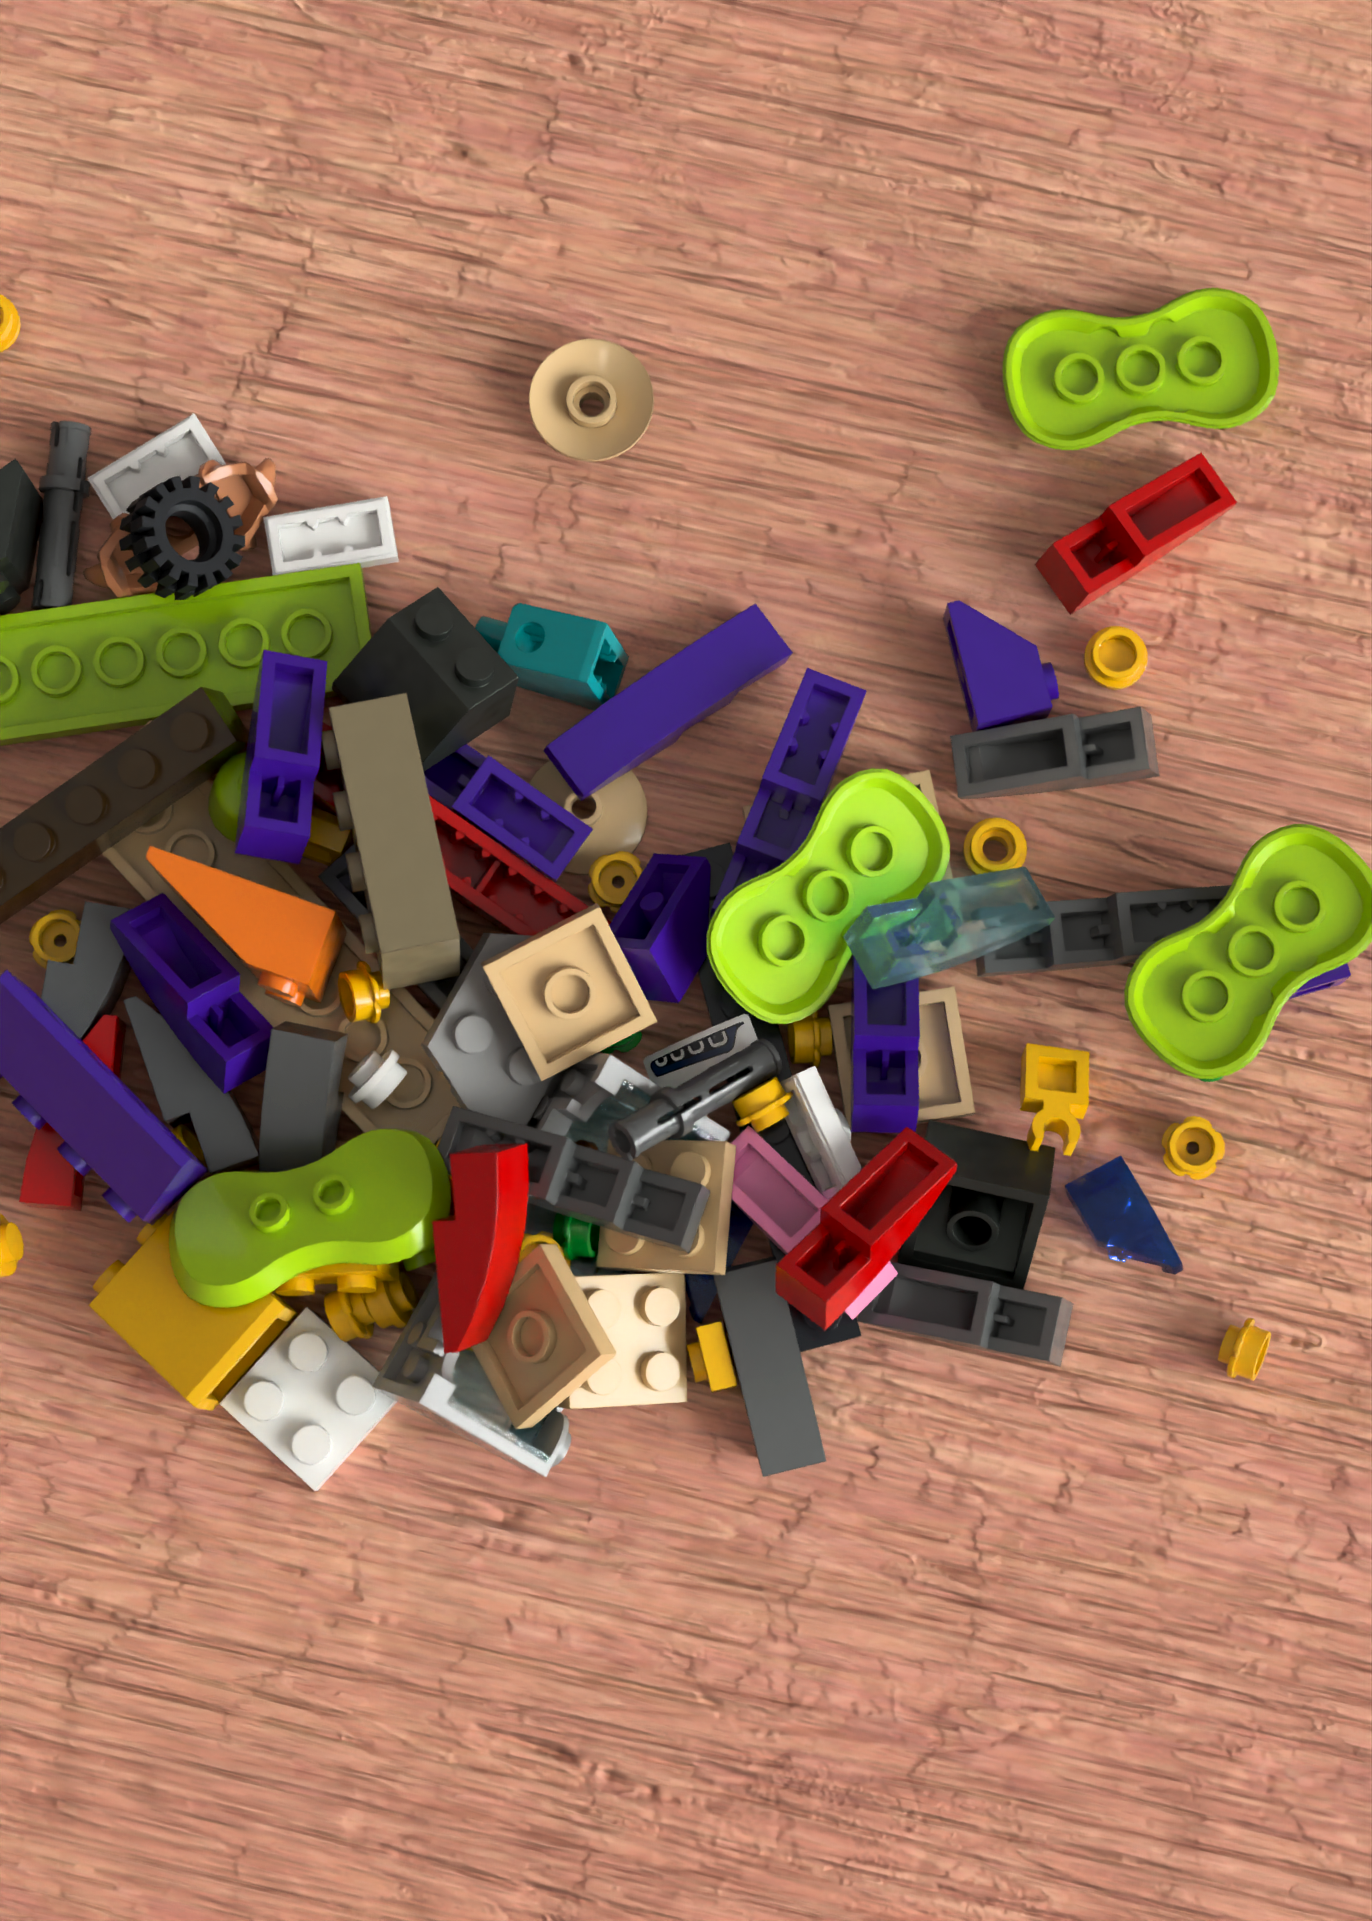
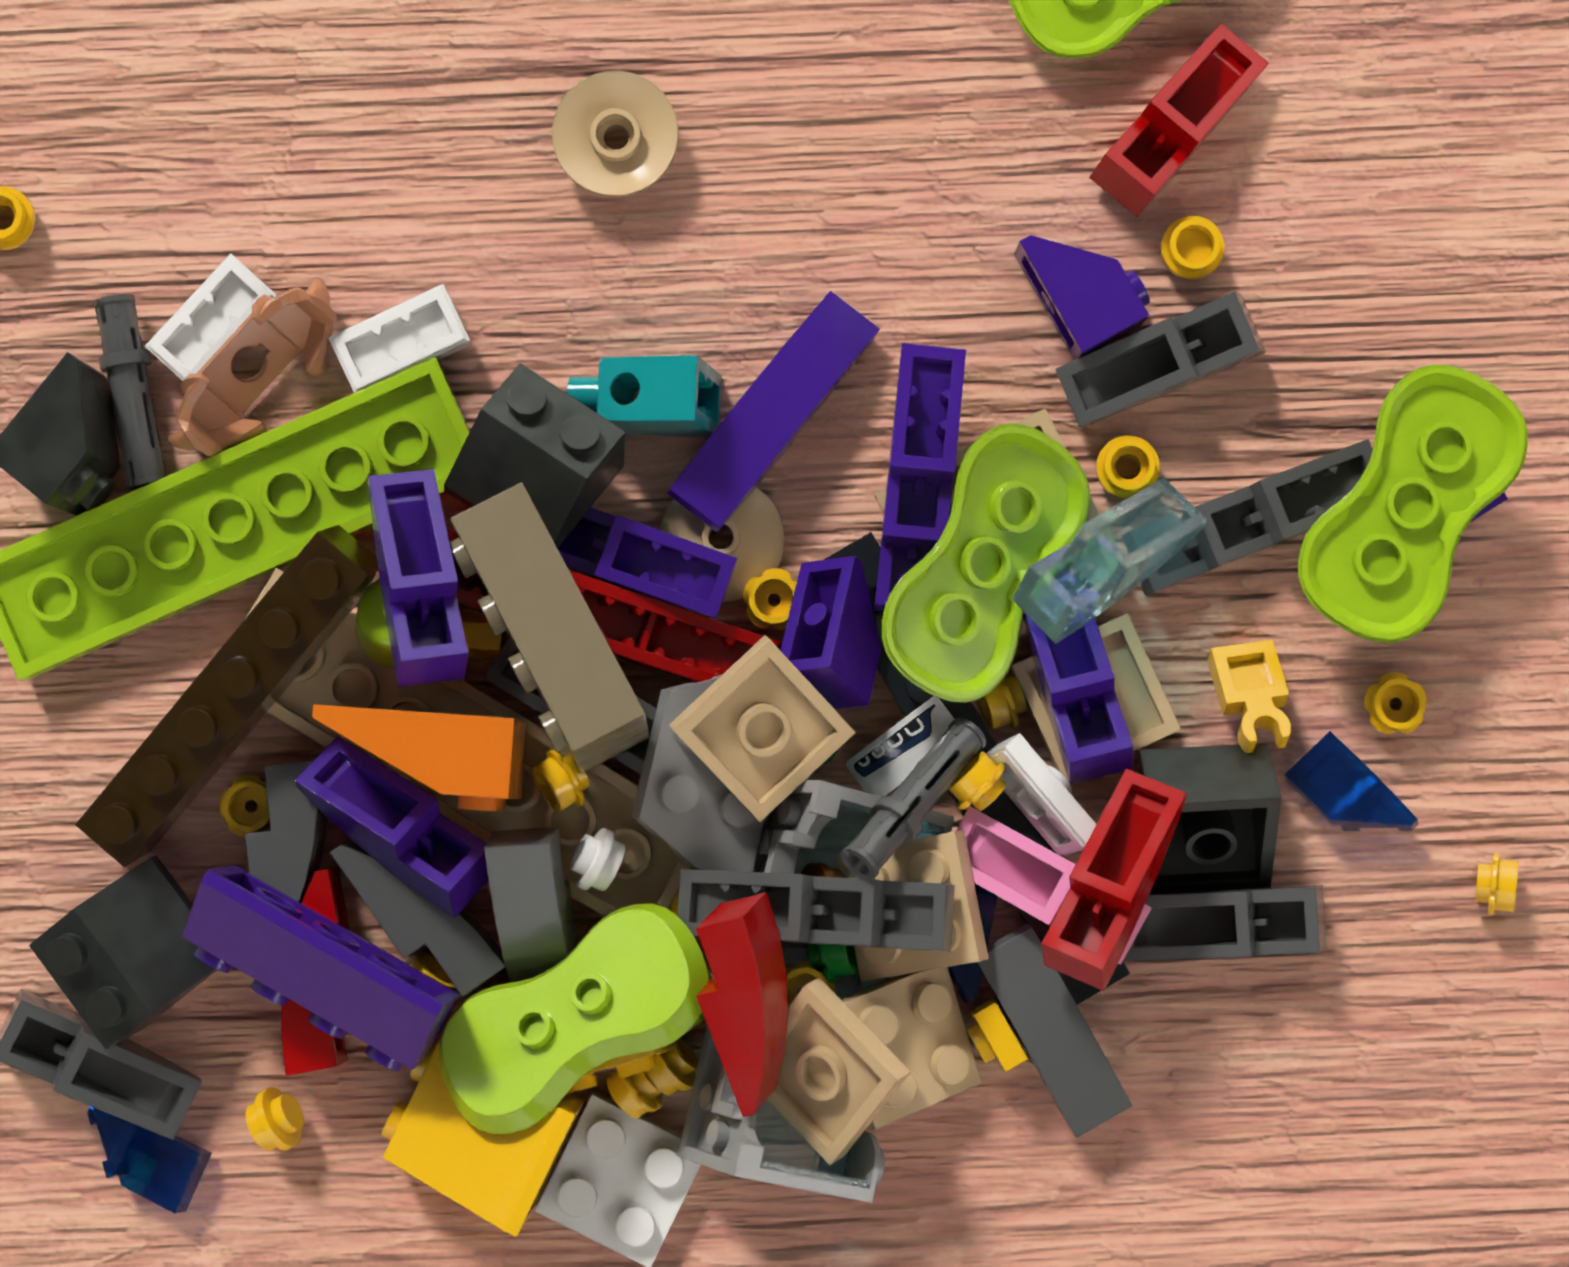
camera: 15 degrees left, 5 degrees up
(205, 517) = (280, 363): black tyre -> none

